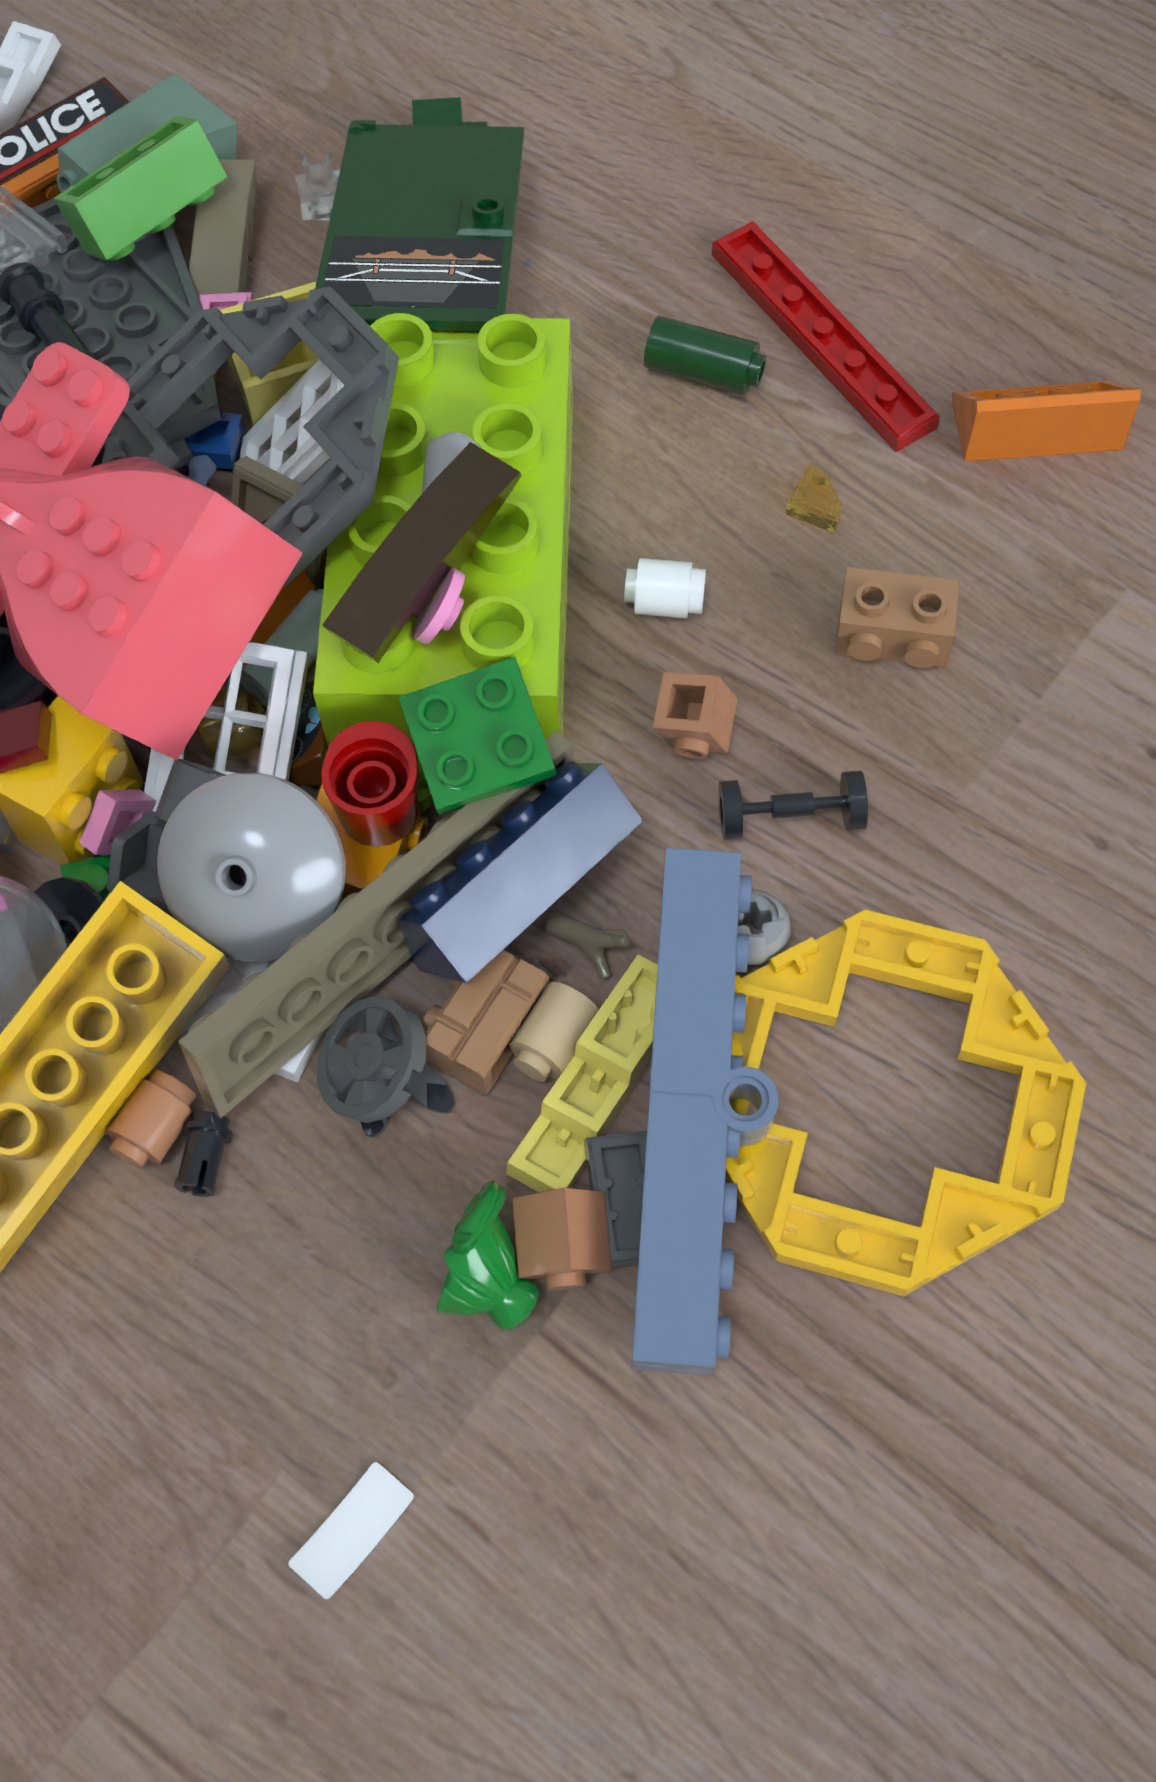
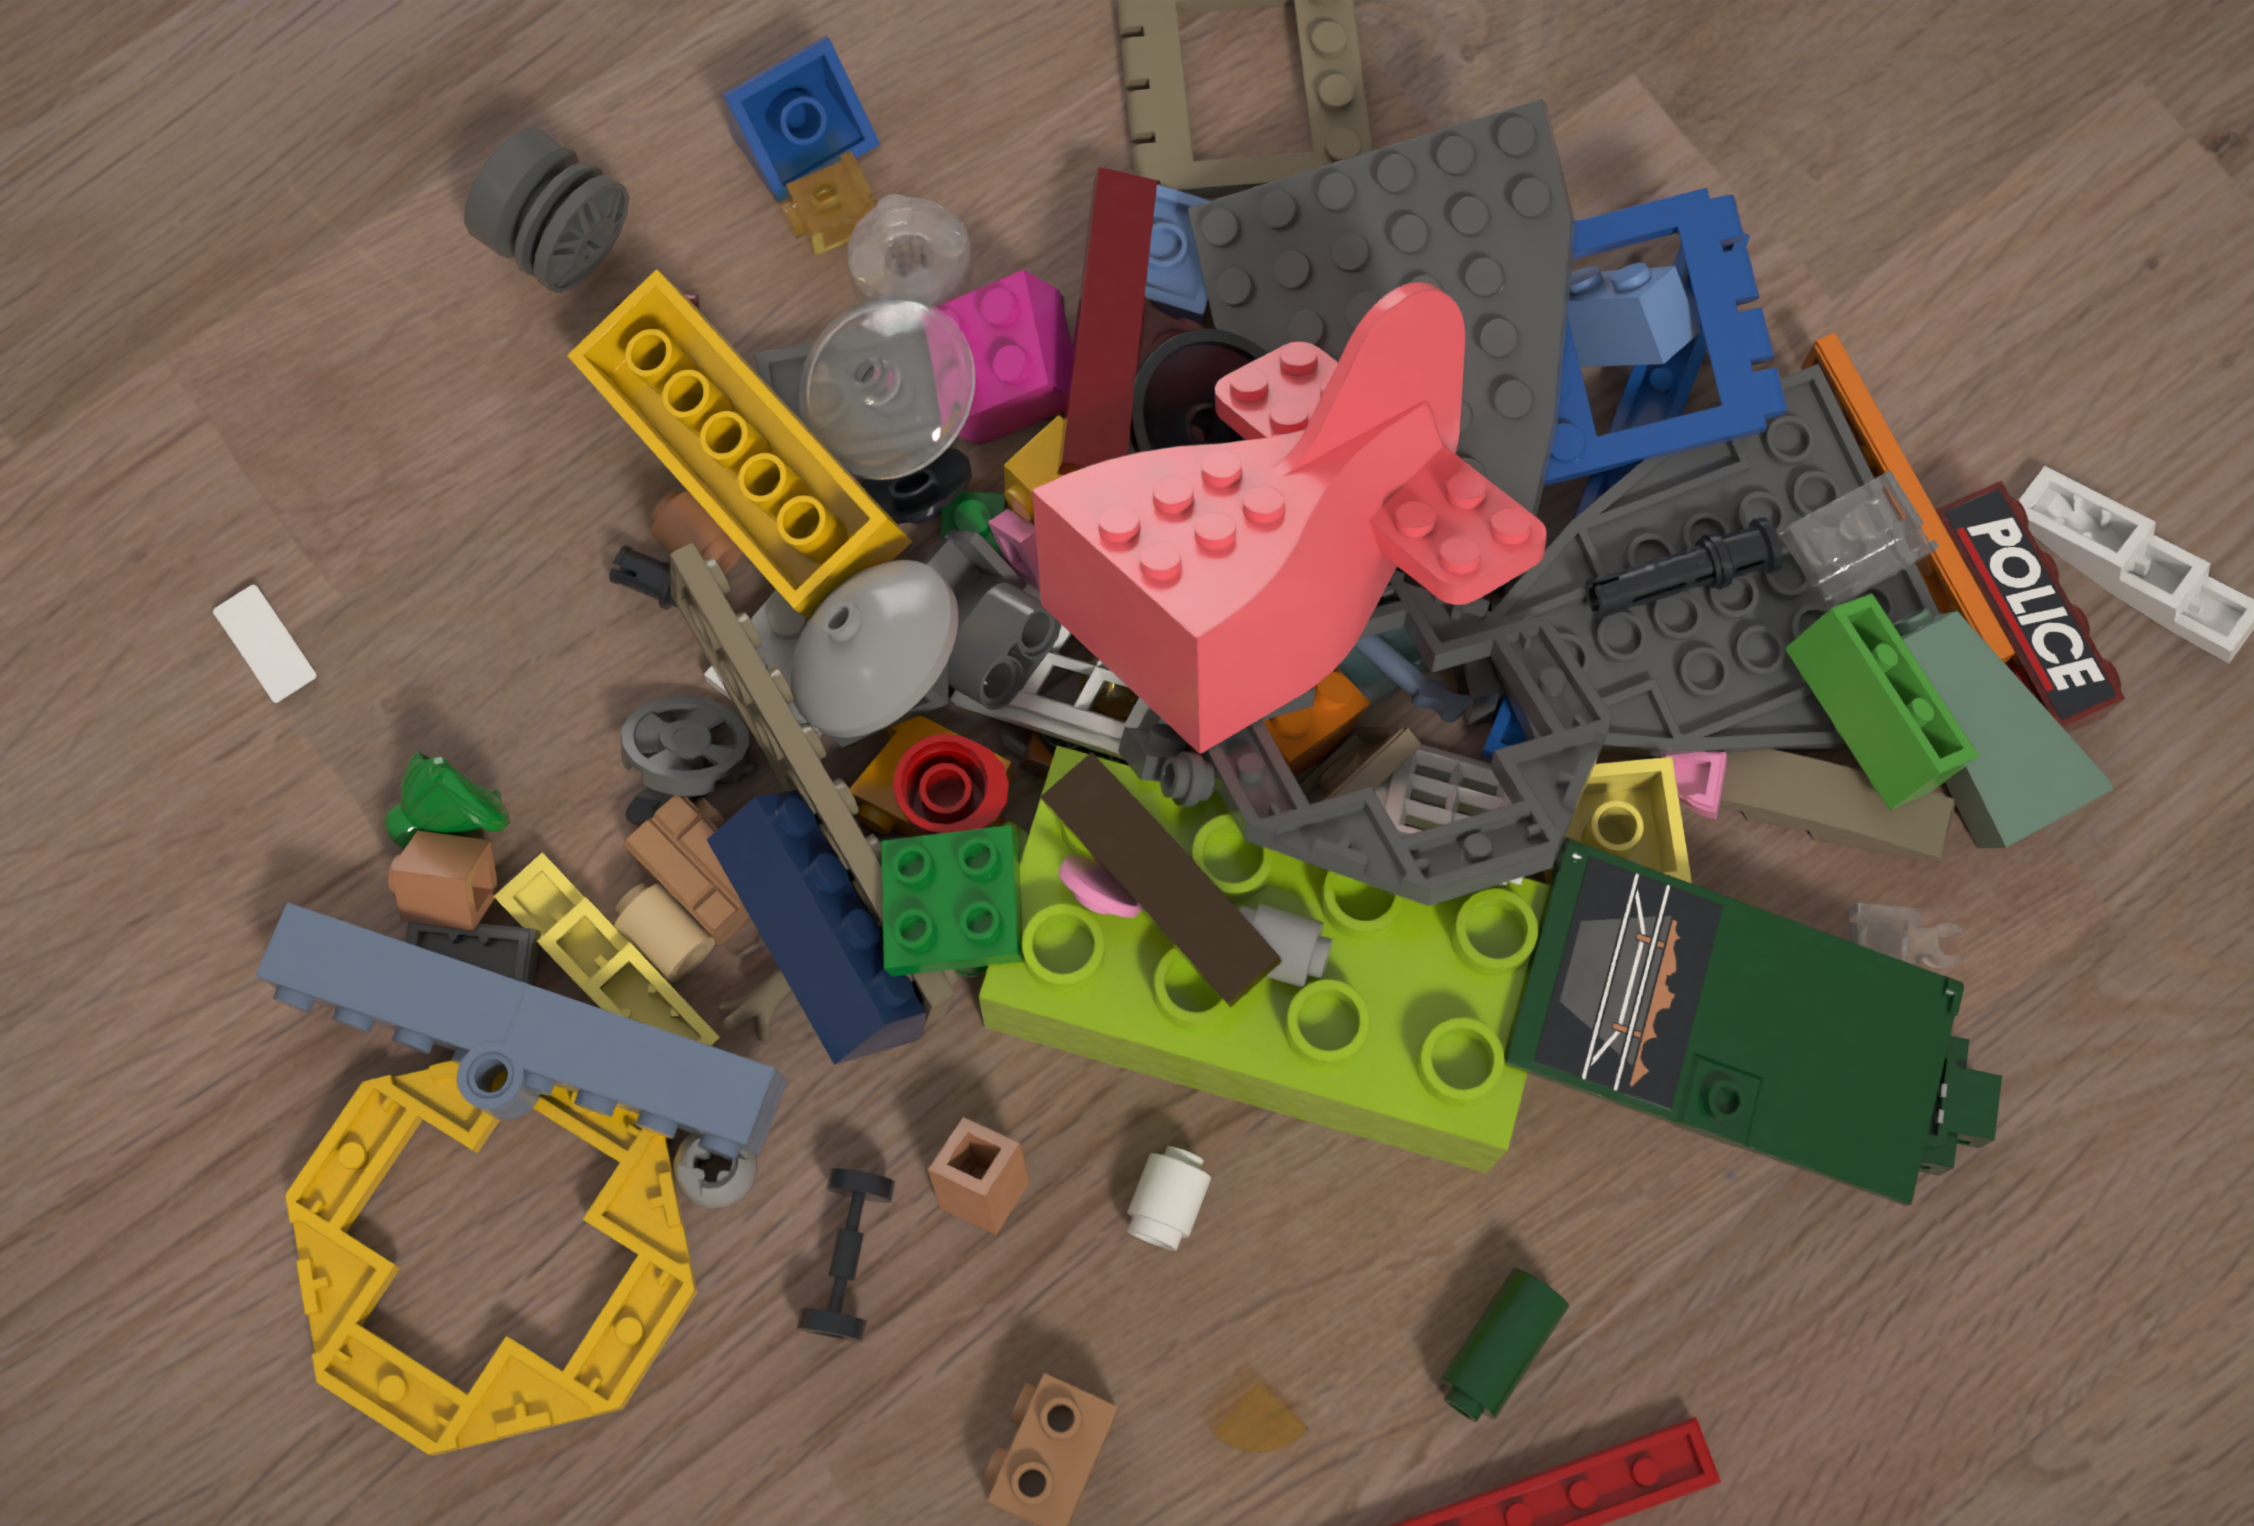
camera: 100 degrees right, 10 degrees up
(307, 606) = (1167, 758): none -> dark grey plate

